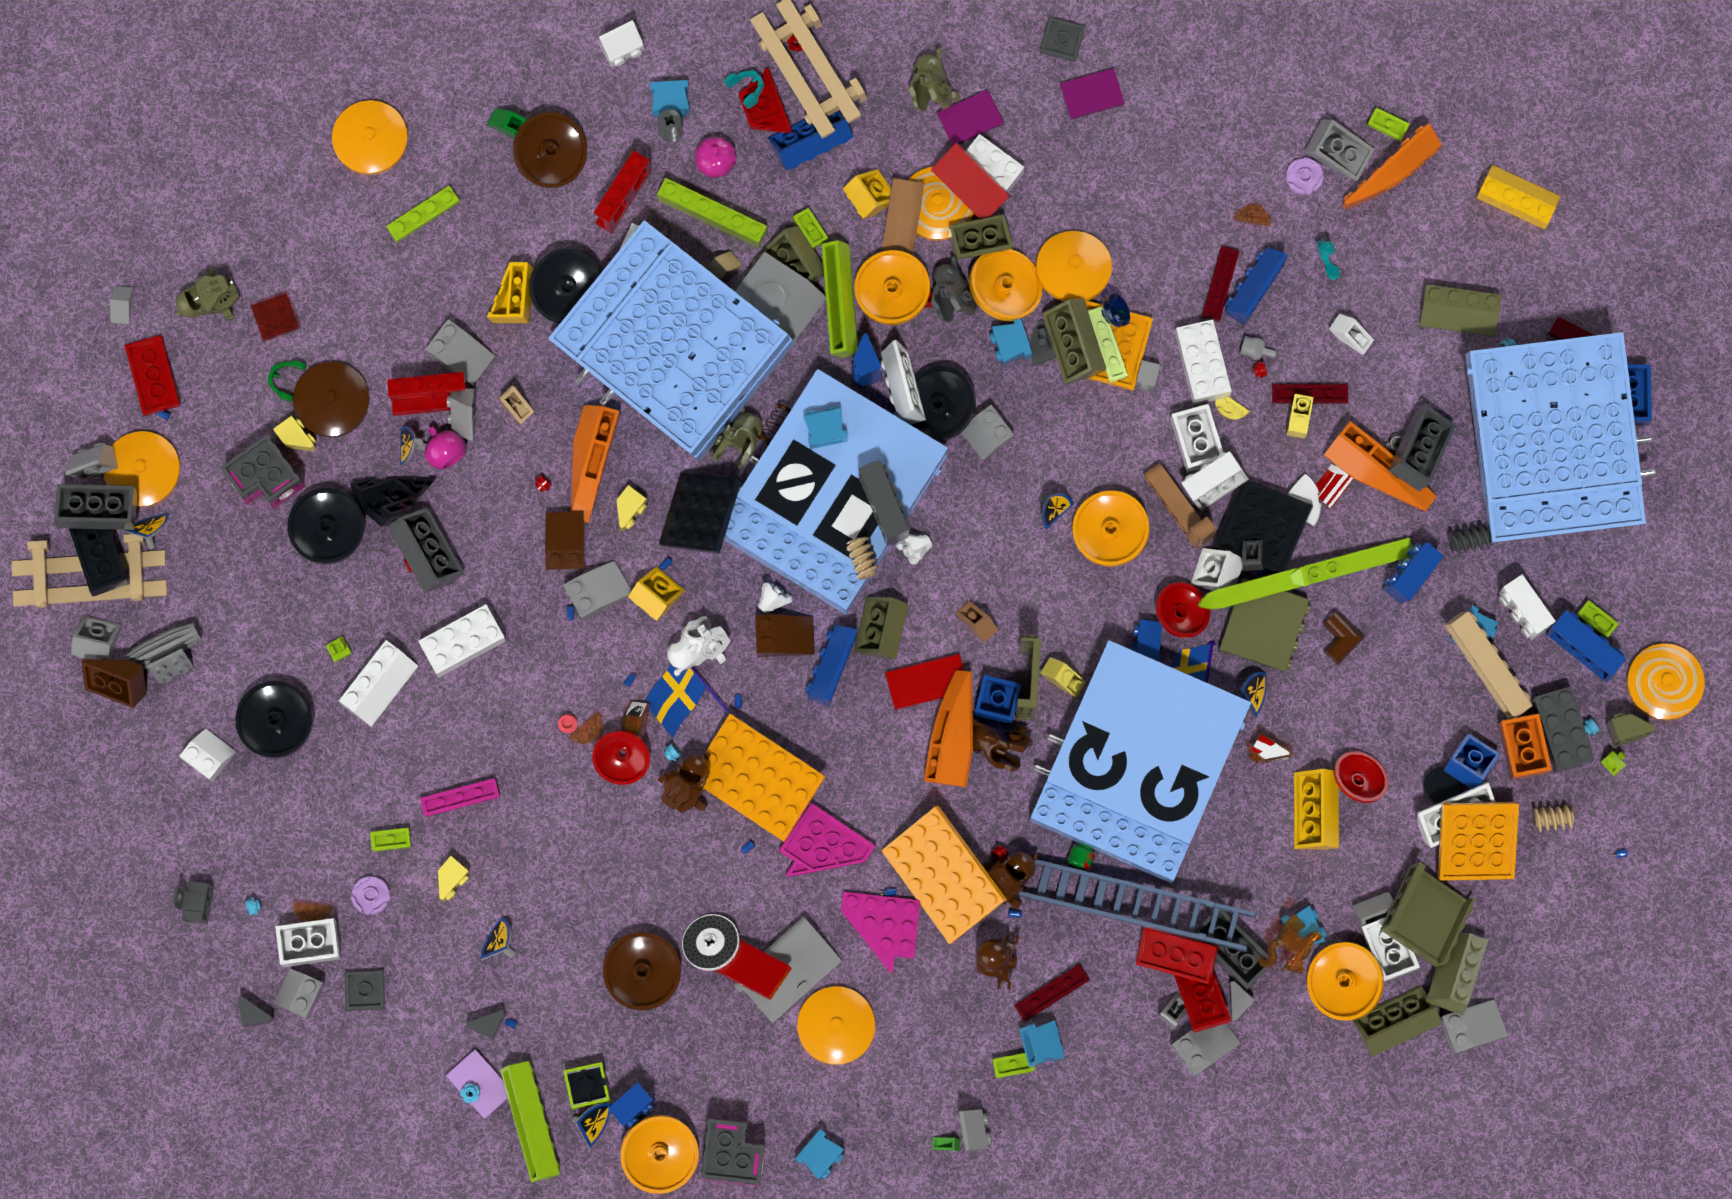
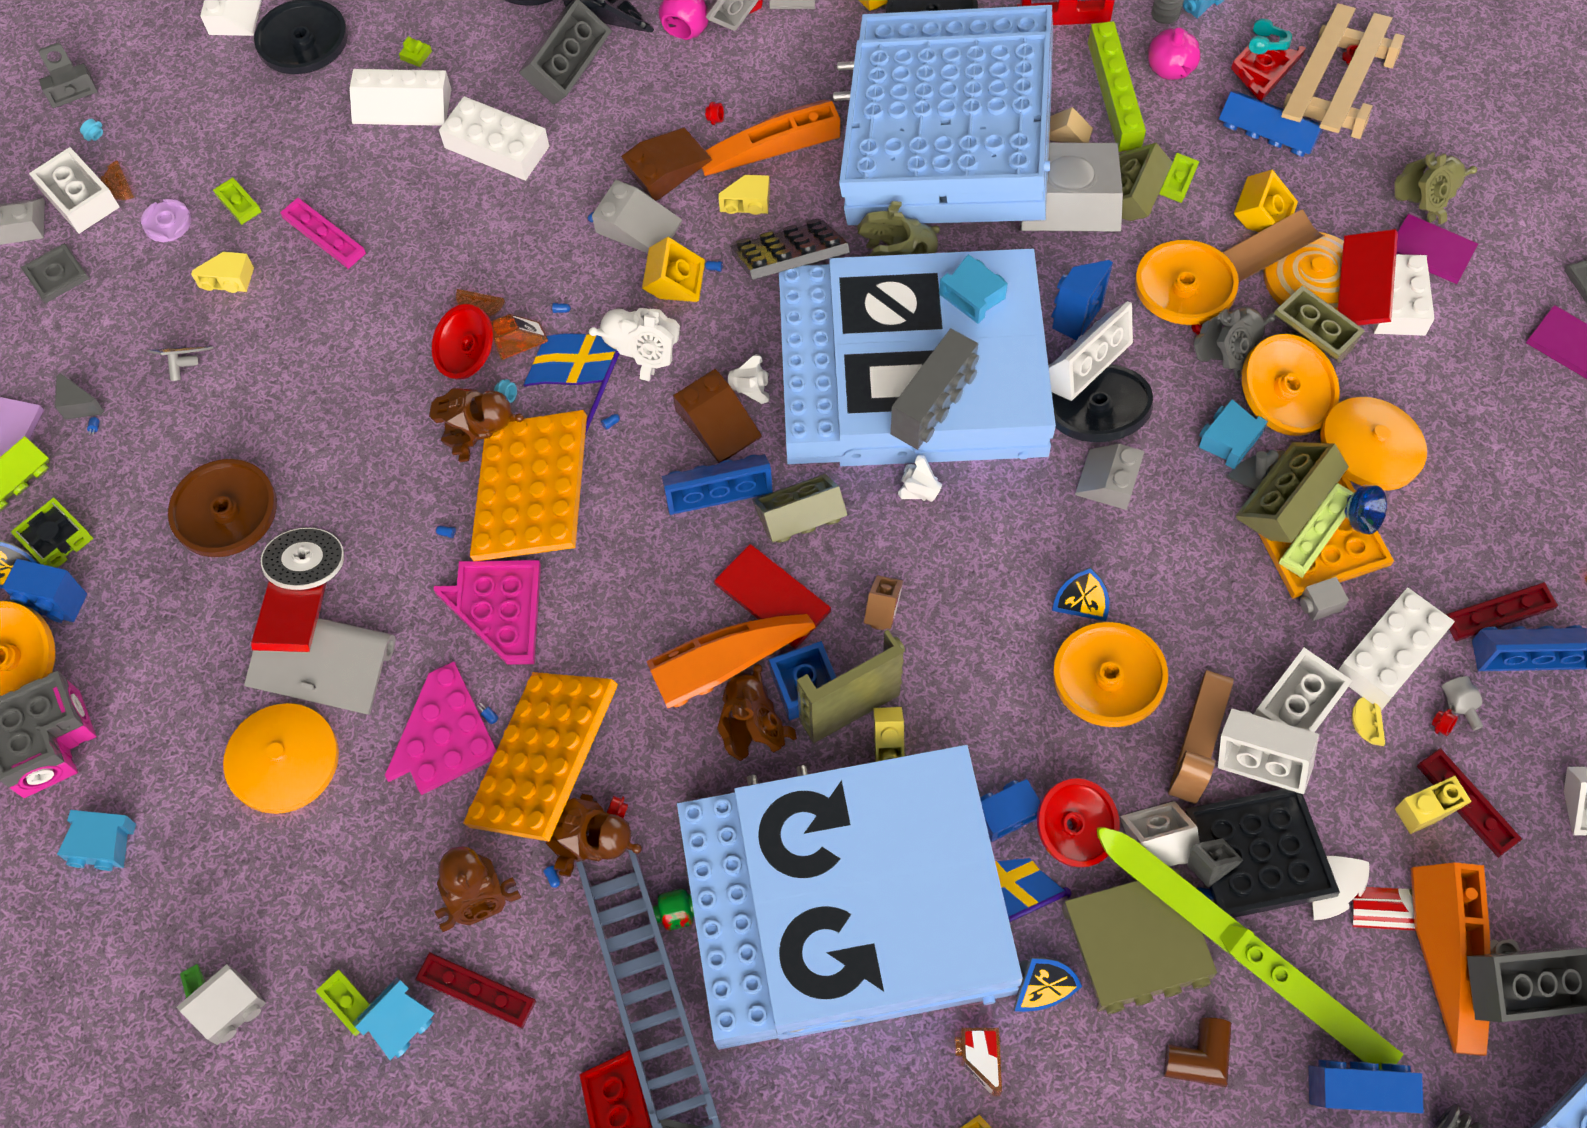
camera: 60 degrees right, 15 degrees down
(516, 405) = (777, 42): tan slope -> none
(567, 723) = (471, 279): coral plate -> none
(839, 299) = (1139, 233): lime brick -> none
(862, 558) = (853, 411): tan piece -> none

